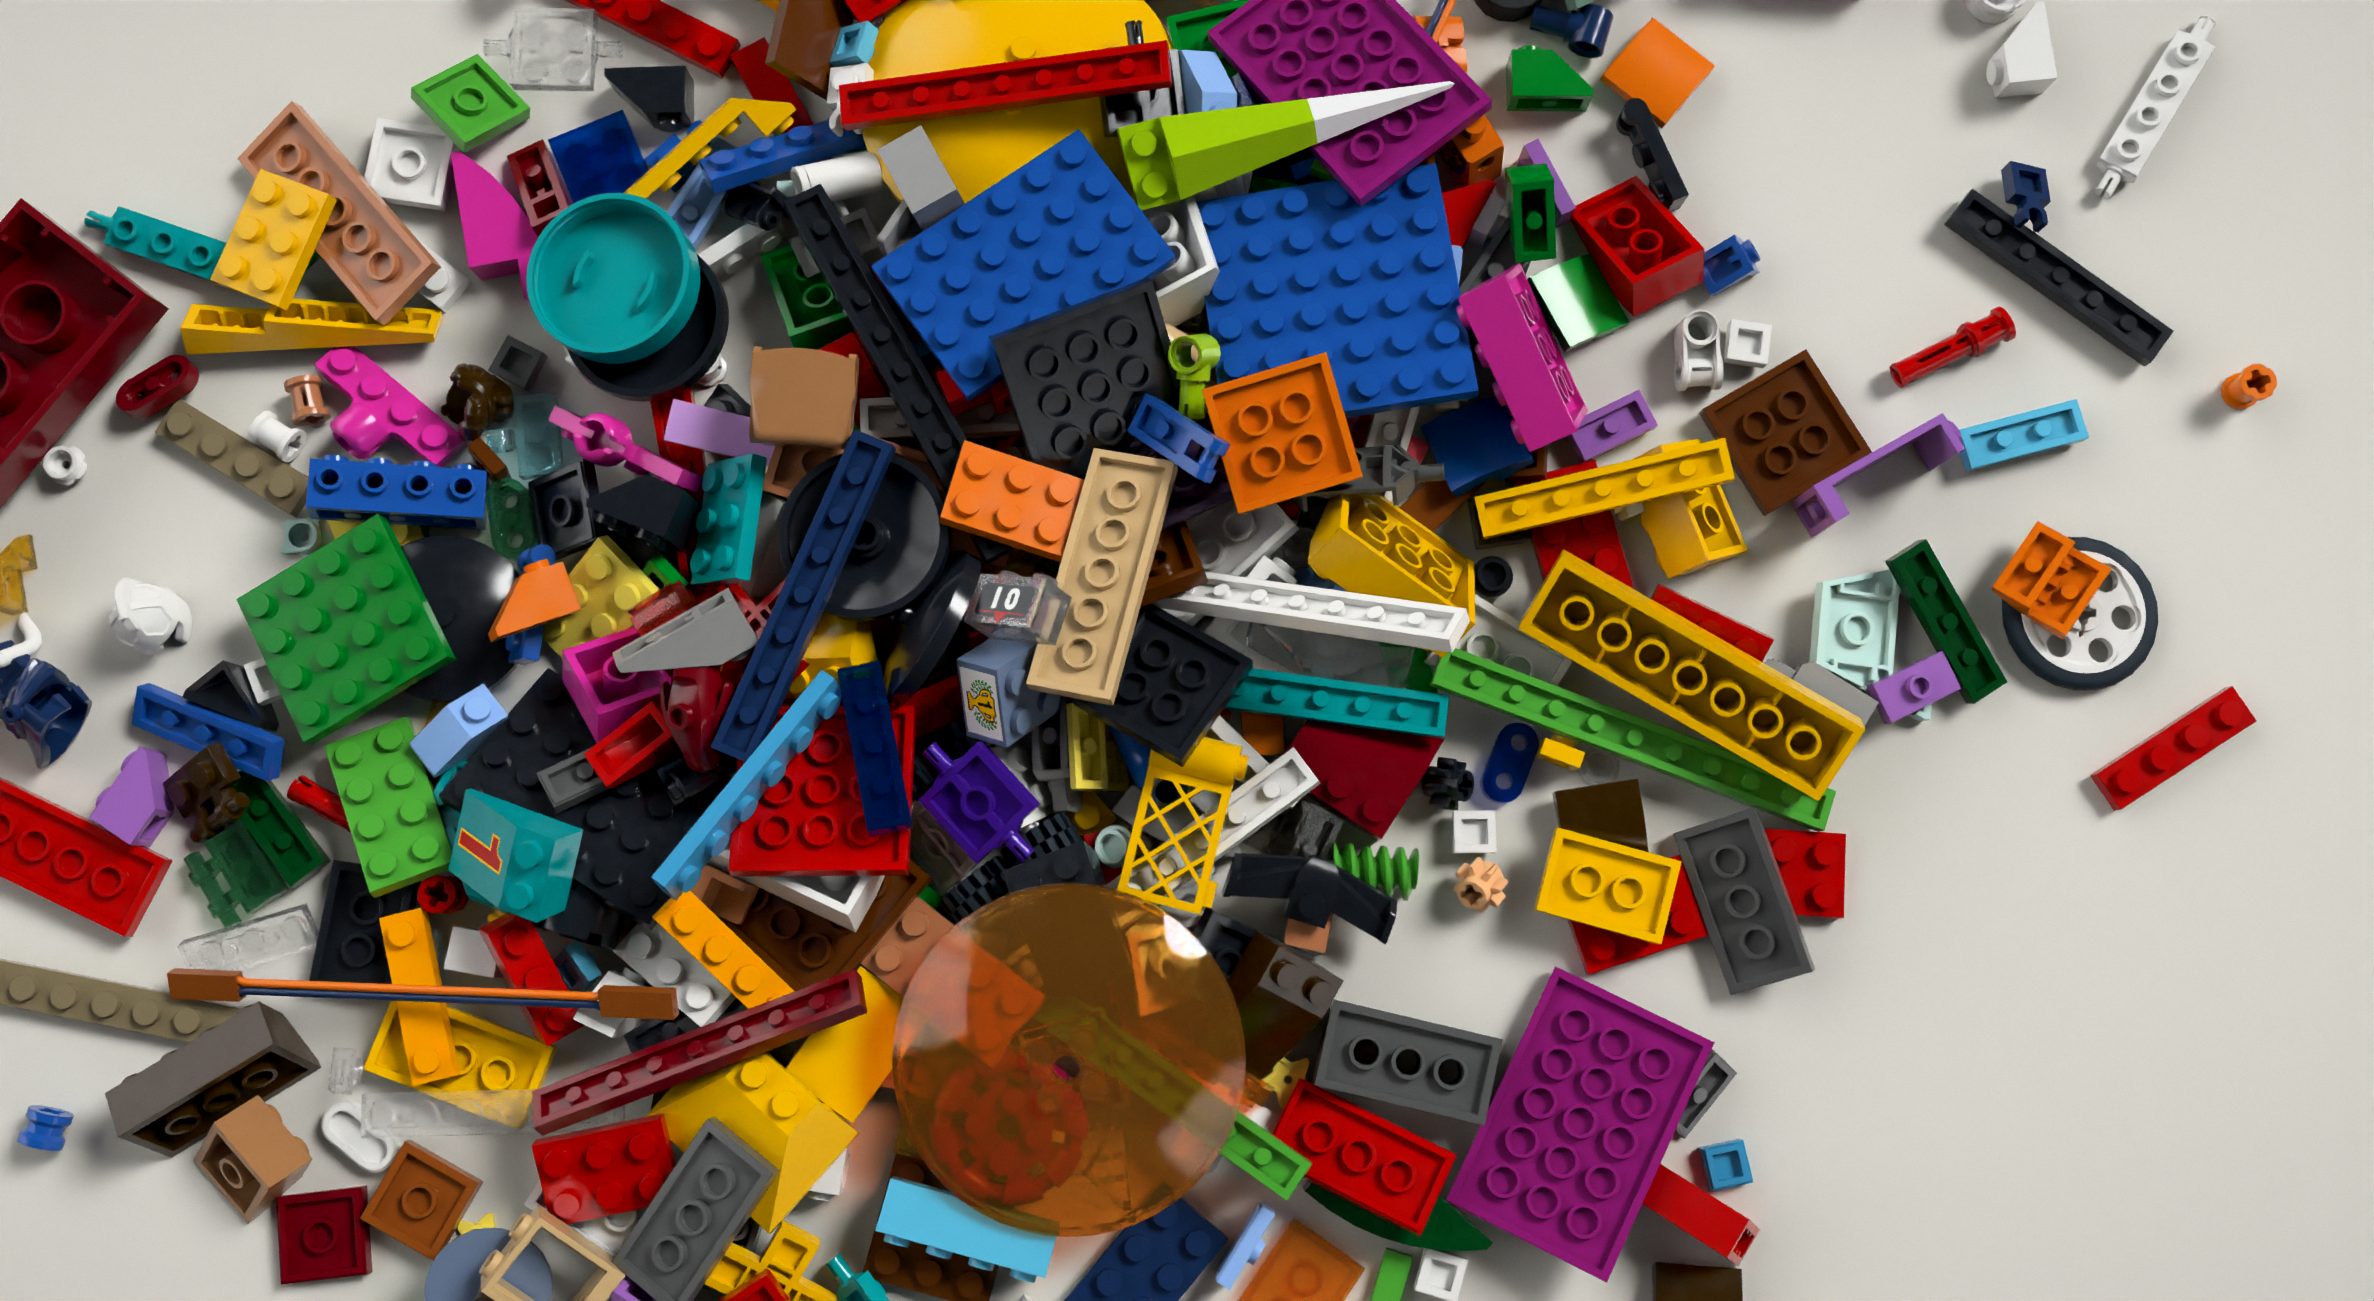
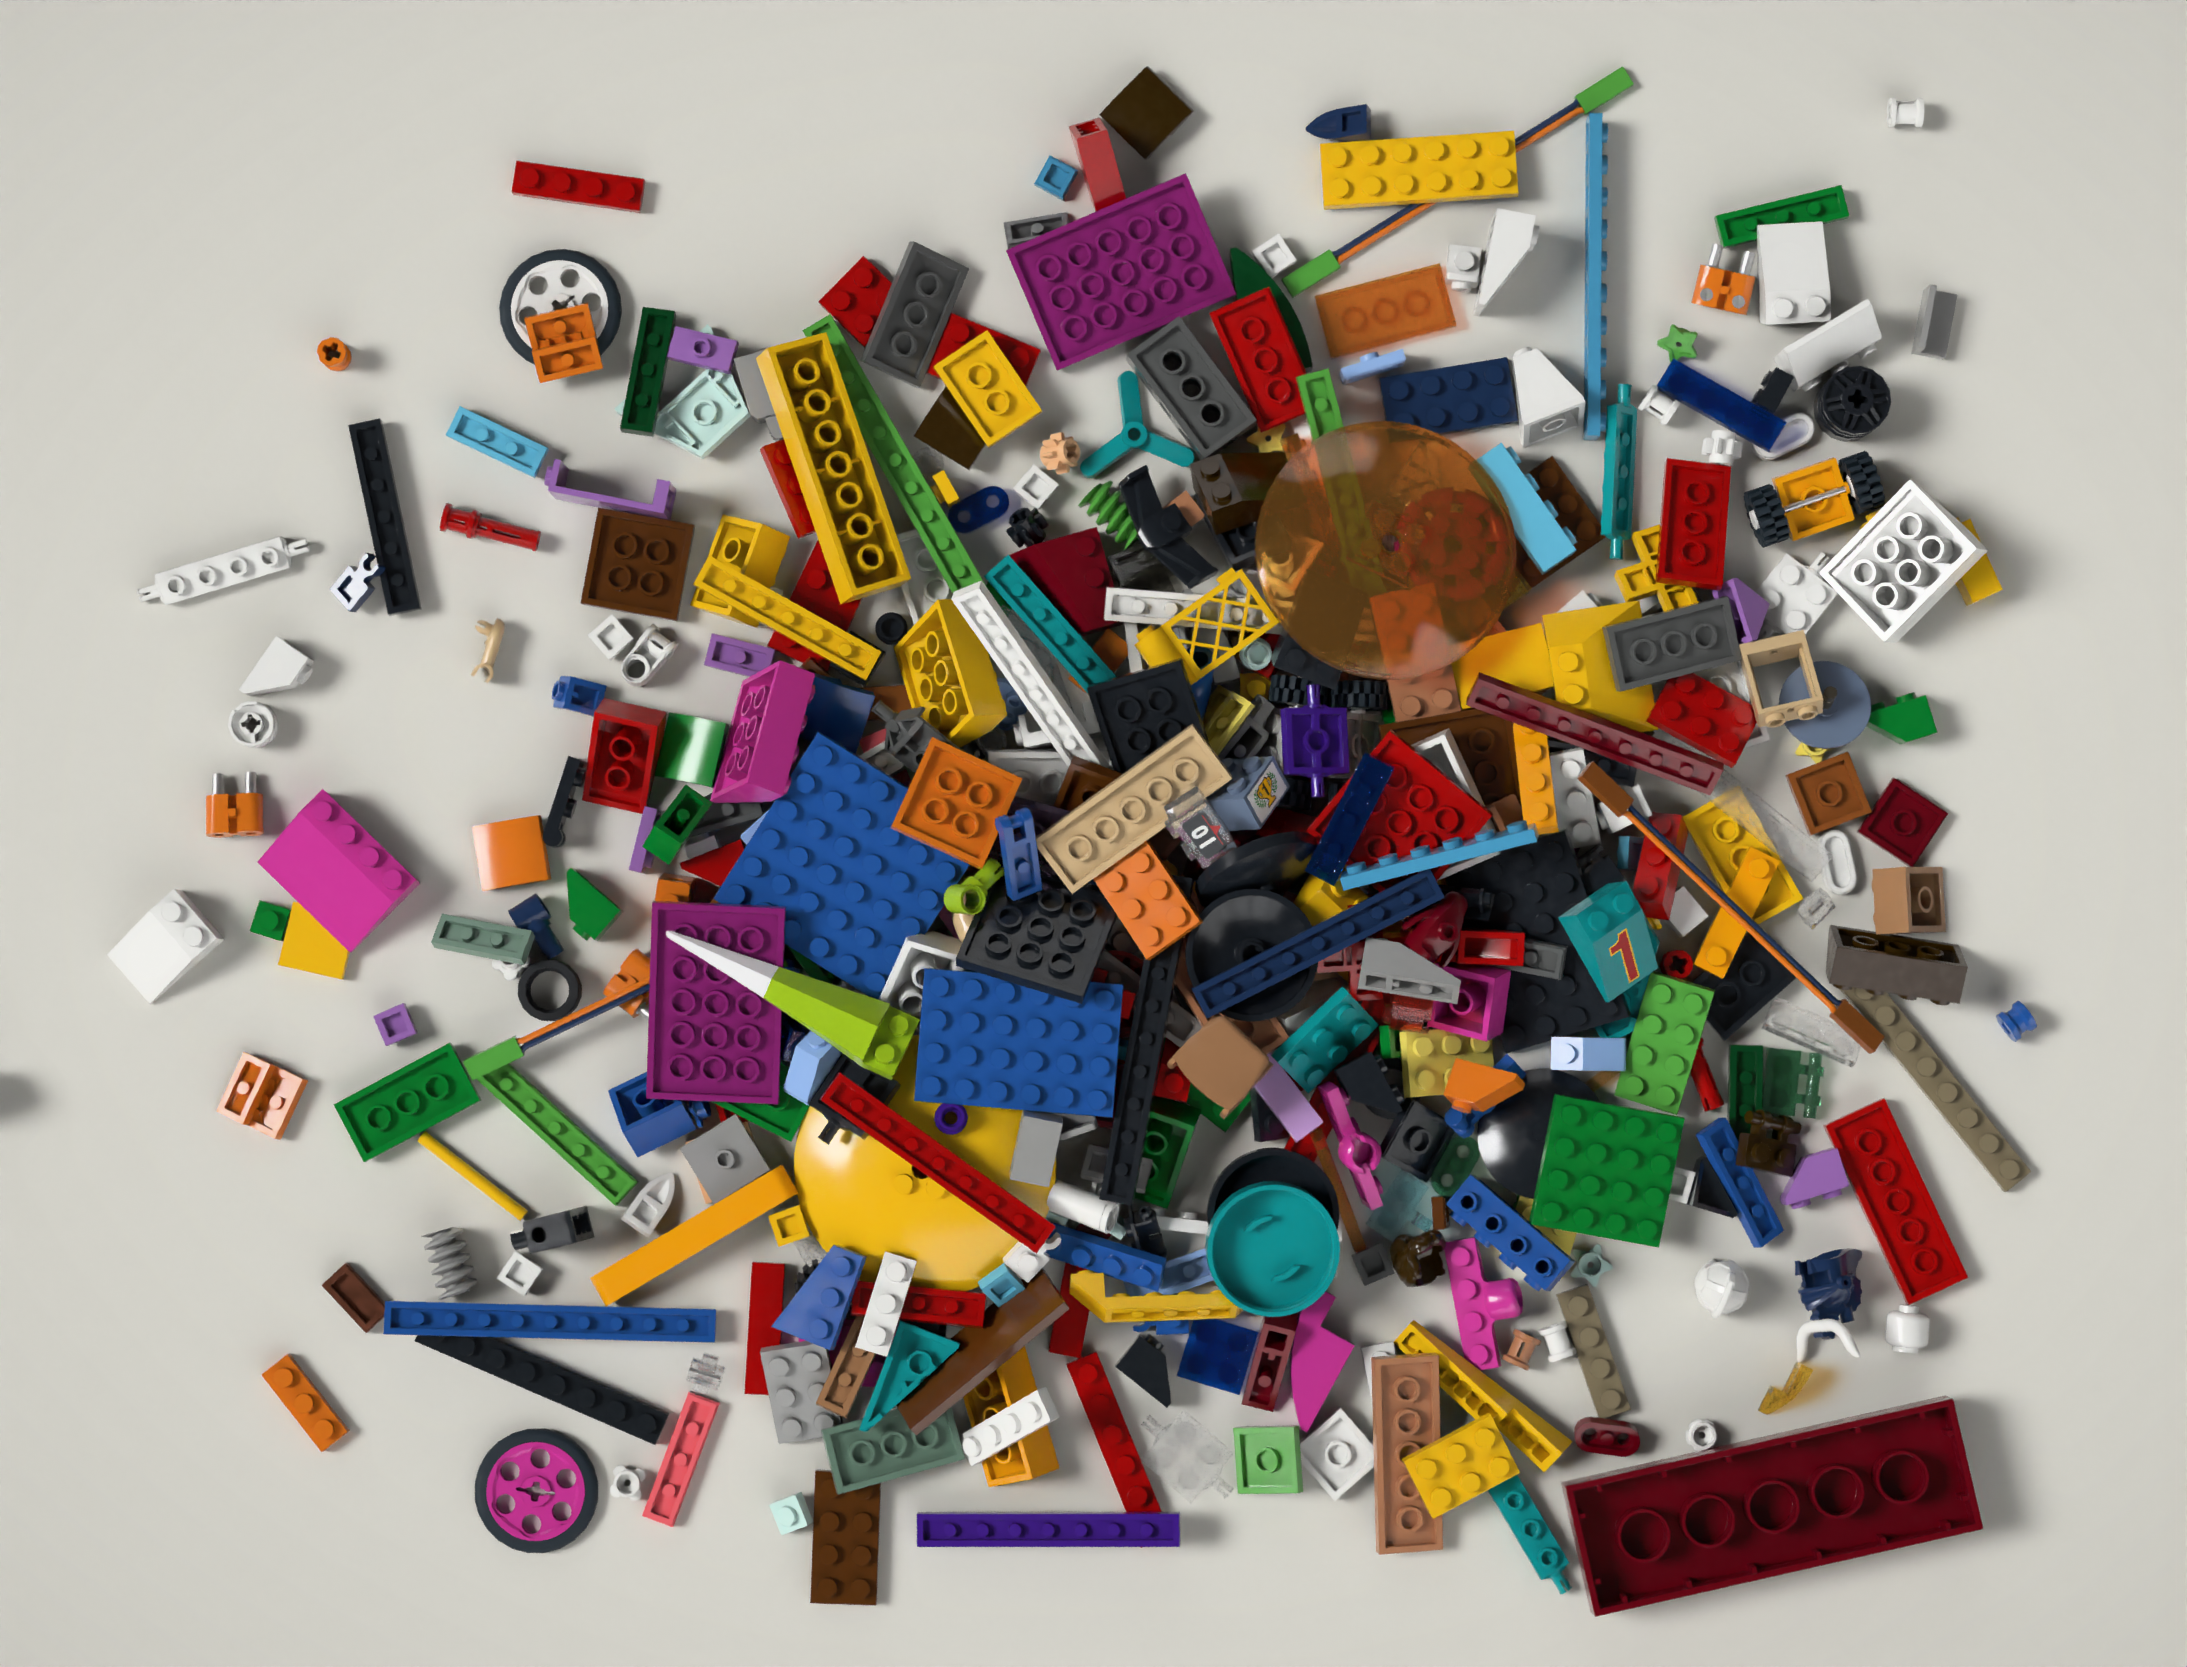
camera: 140 degrees left, 5 degrees up
(603, 400) = (1344, 1205): none -> clear orange bar
(1023, 131) = (946, 1128): none -> dark purple plate
(1404, 974) = (1133, 420): none -> teal piece
(1852, 247) = (493, 640): none -> tan piece

